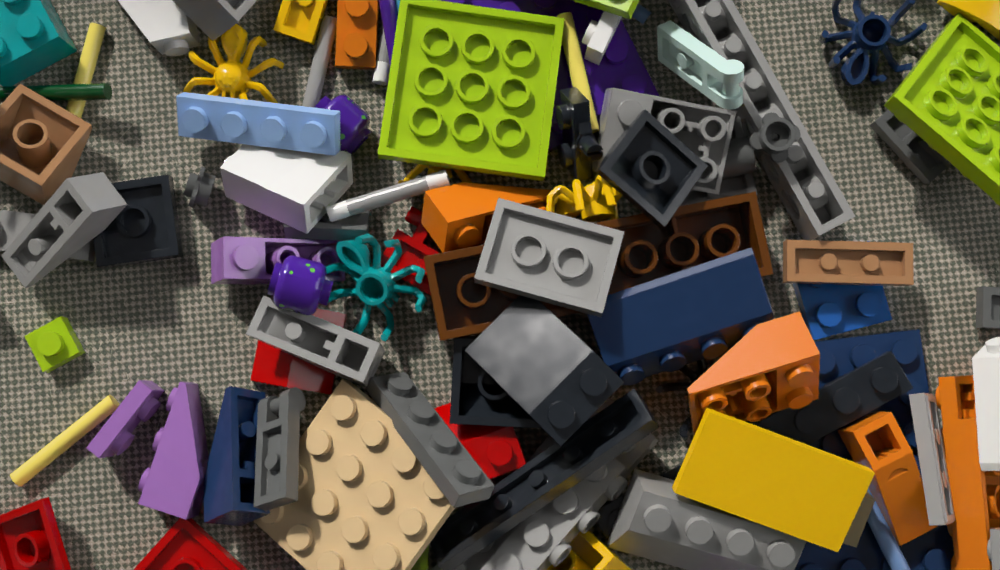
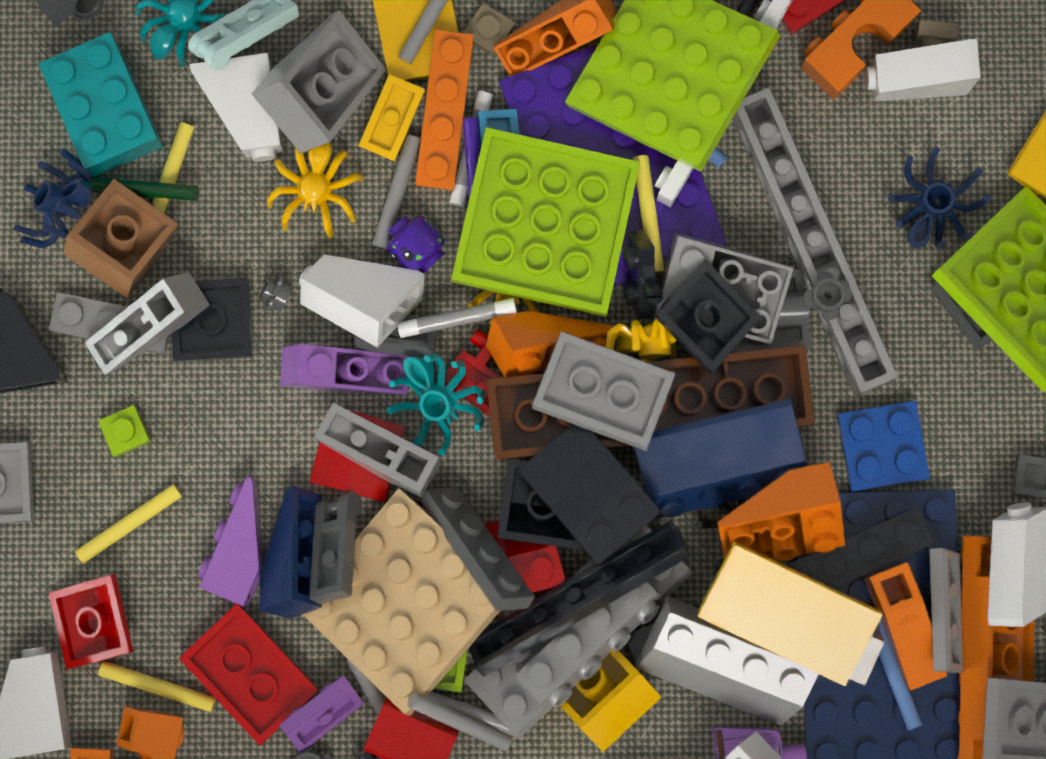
camera: 10 degrees right, 0 degrees up
(117, 431) = (201, 497): medium lavender plate -> none
(258, 123) = (339, 238): light blue plate -> none
(299, 285) = (368, 396): dark purple head -> none
(700, 65) = (765, 219): light aqua plate -> none
(848, 263) = (888, 420): medium nougat plate -> none

